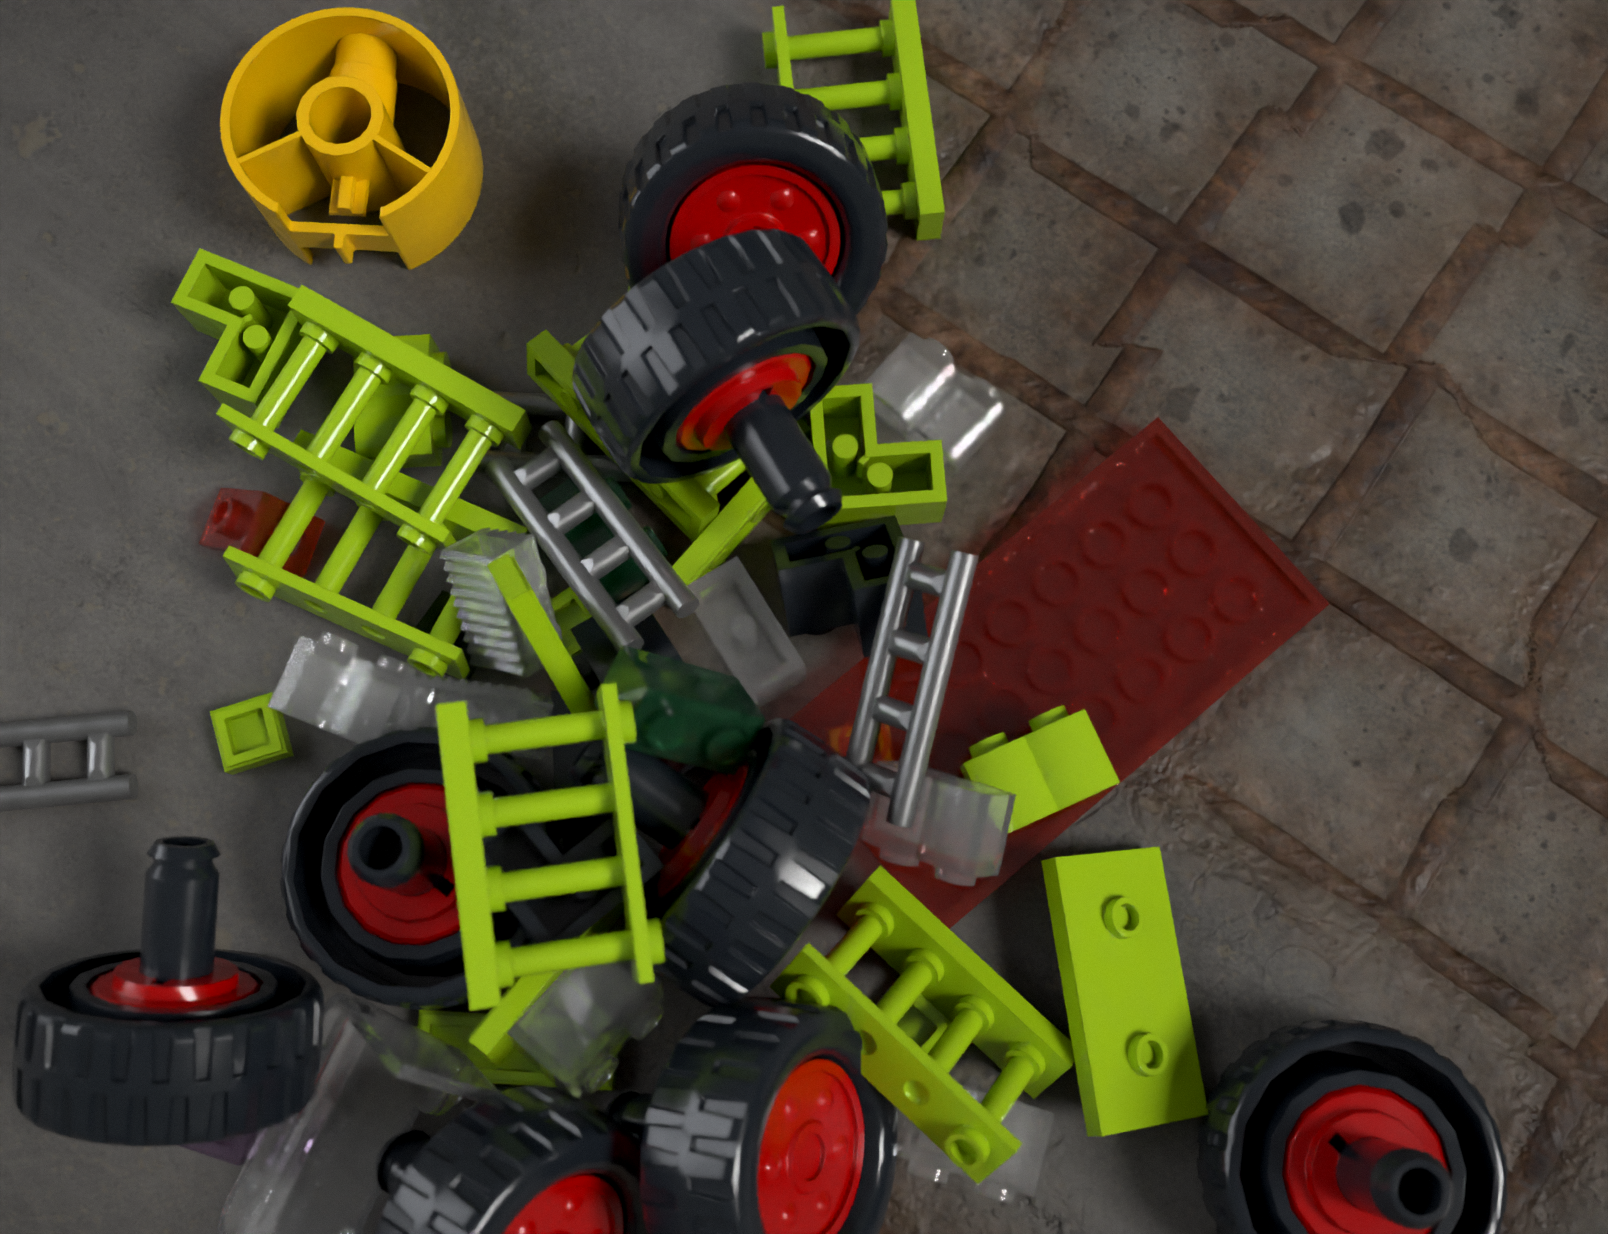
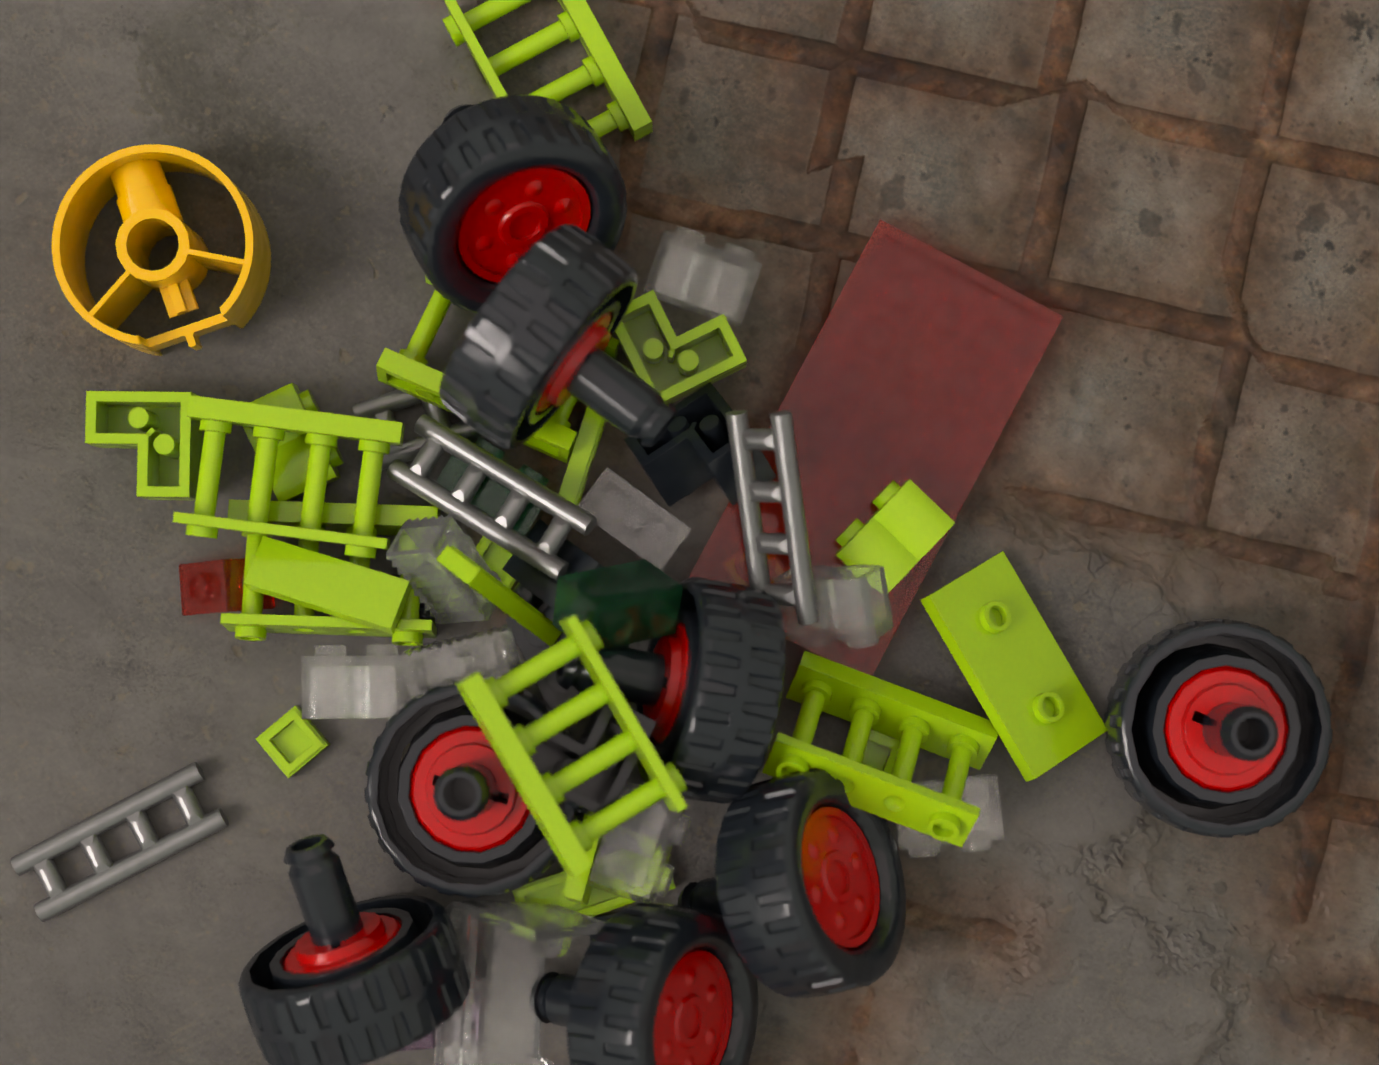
camera: 20 degrees left, 10 degrees up
(363, 562) = (328, 584): none -> lime tile

